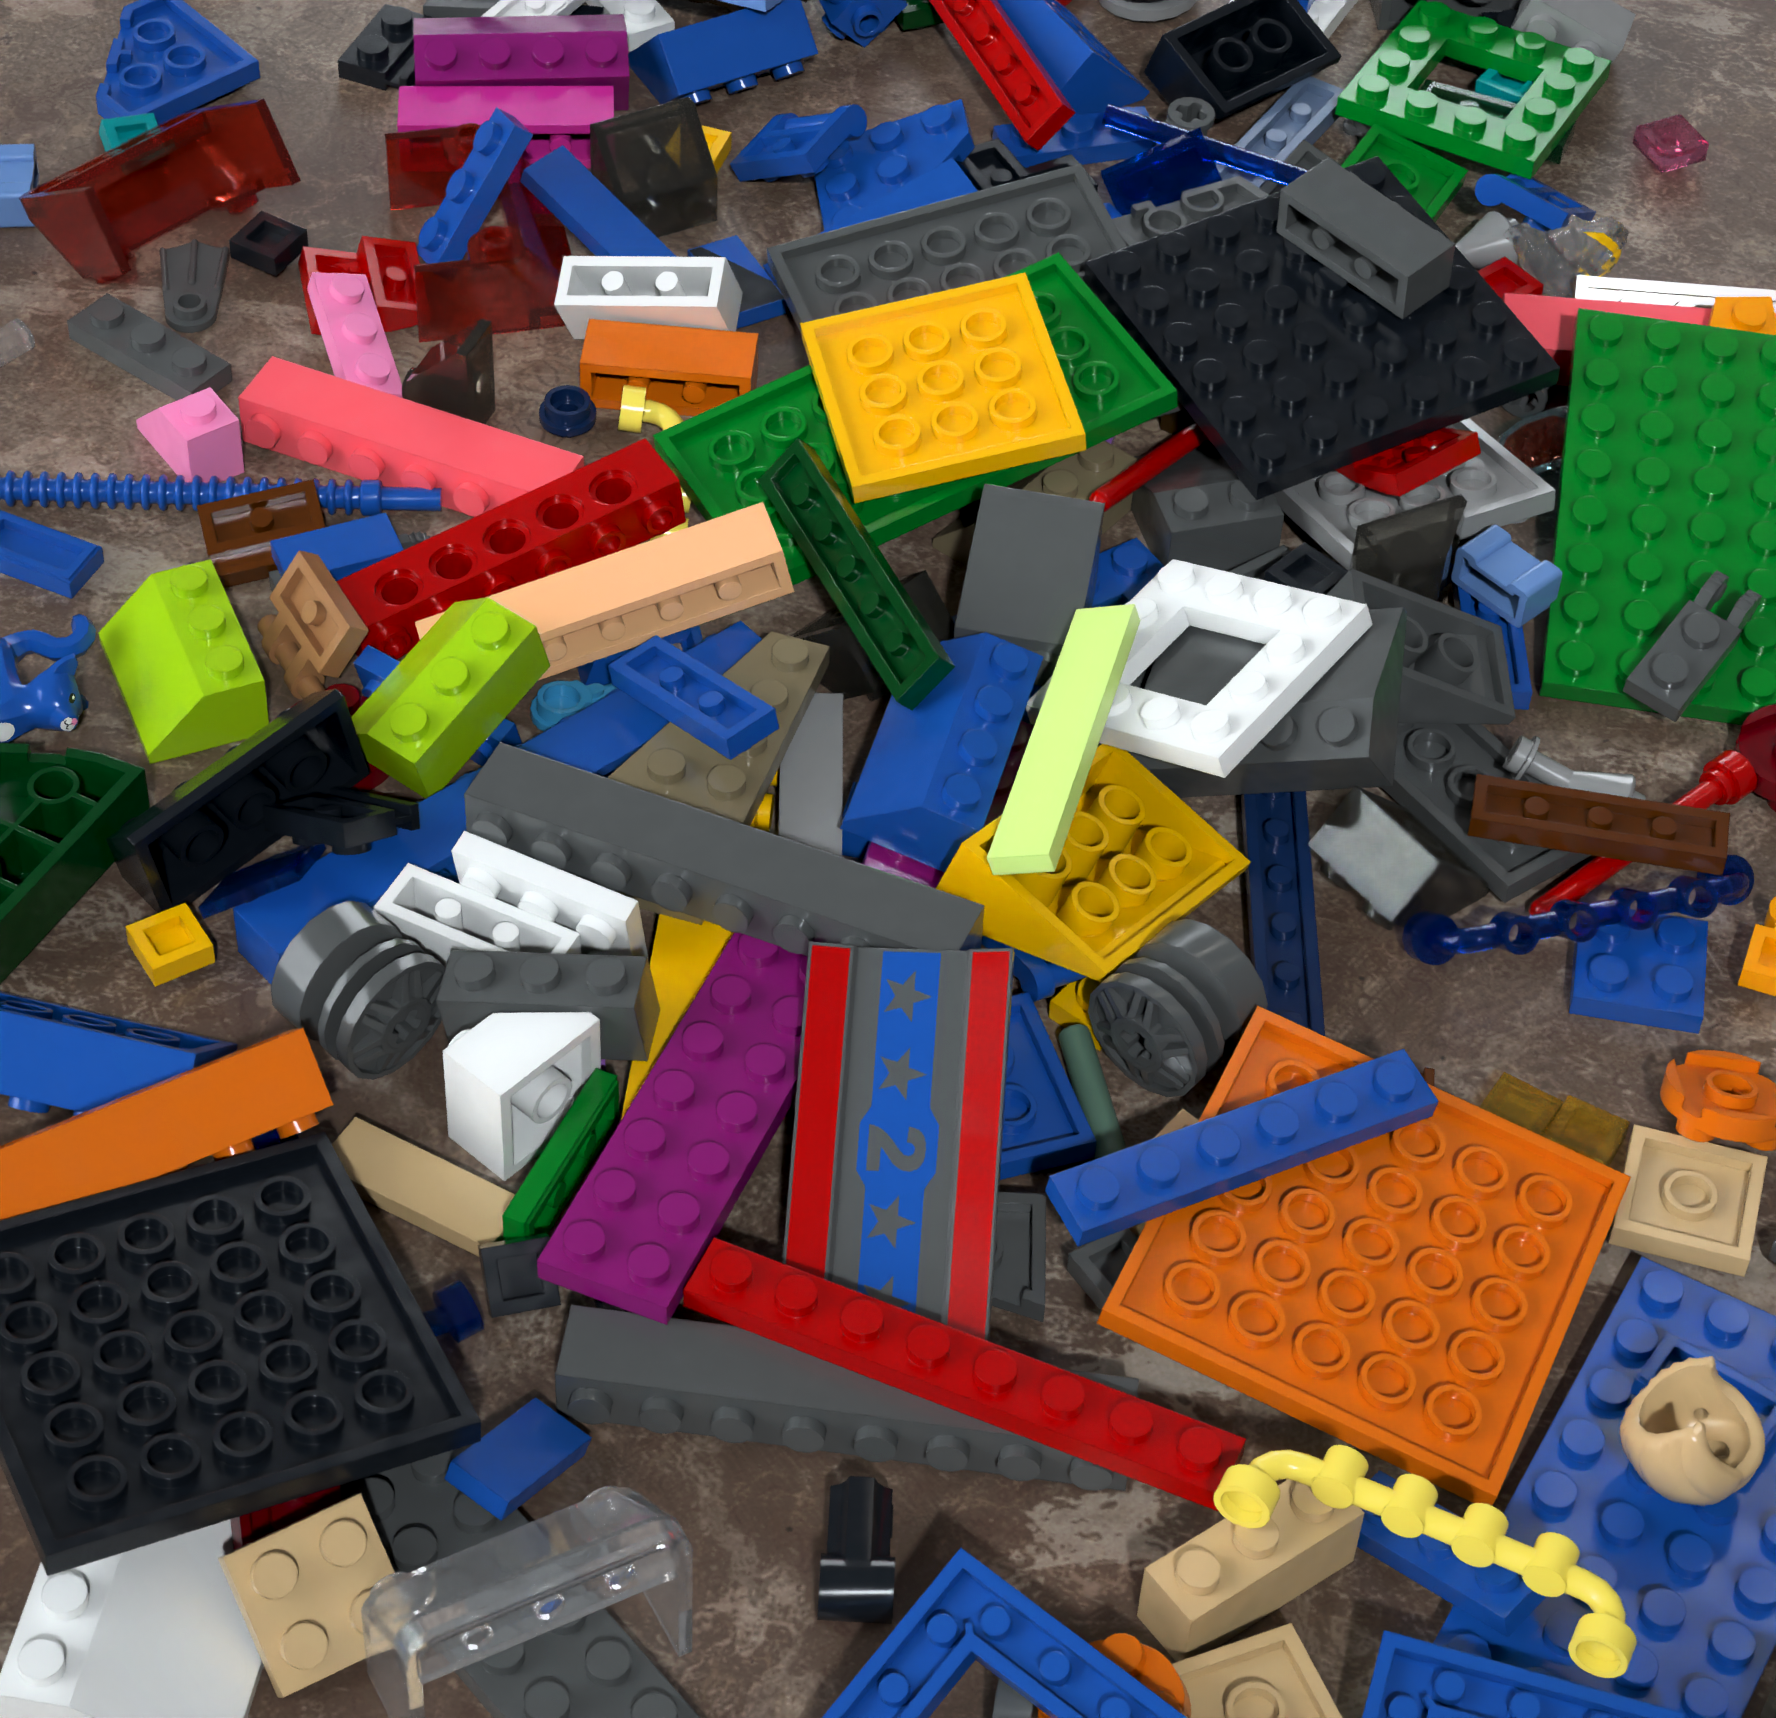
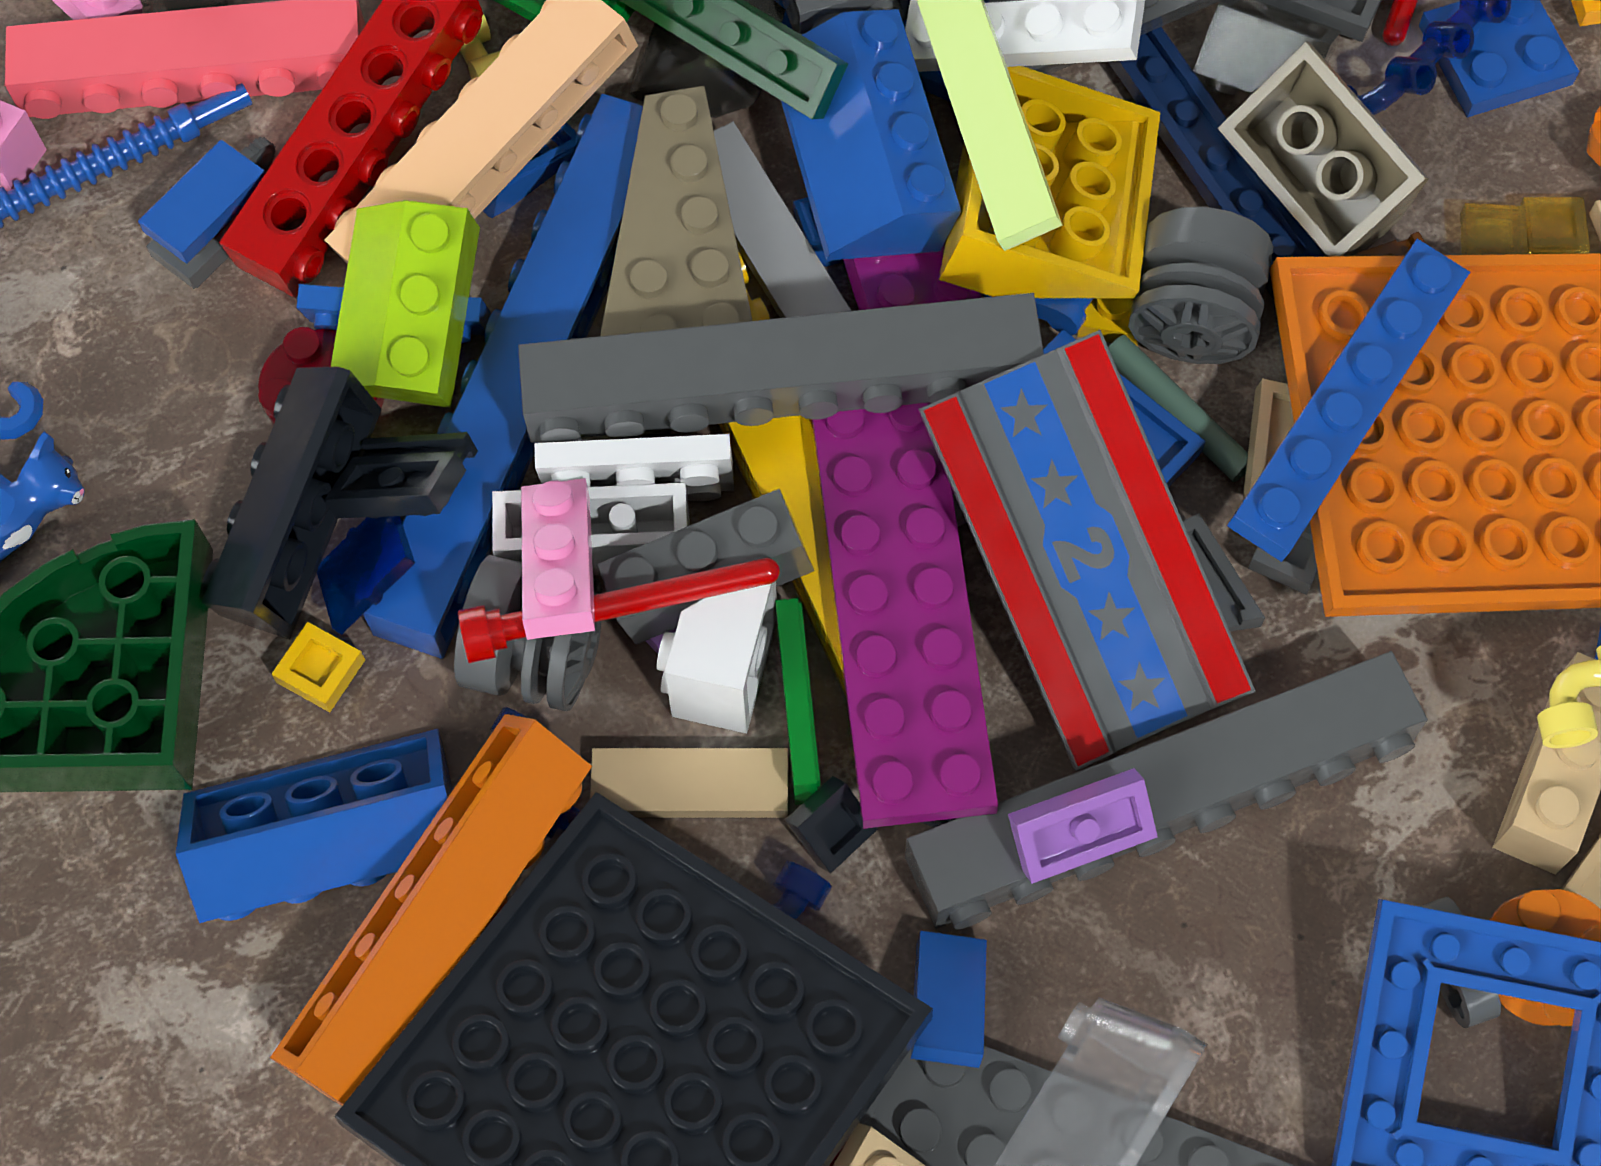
camera: 25 degrees left, 20 degrees up
(184, 664) = (137, 380): lime slope -> none
(242, 526) = (104, 209): reddish brown plate -> none
(312, 943) = (489, 631): none -> red piece
(314, 626) = (232, 277): medium nougat plate -> none
(414, 917) = (557, 559): none -> bright pink plate
(564, 699) = (501, 241): dark azure plate -> none
(693, 697) = (634, 201): blue plate -> none
(730, 1359) = (1083, 825): none -> medium lavender plate
(858, 1568) = (1275, 944): black piece -> none
(963, 1372) = (1260, 726): red plate -> none
(1367, 950) = (1324, 155): none -> dark tan slope

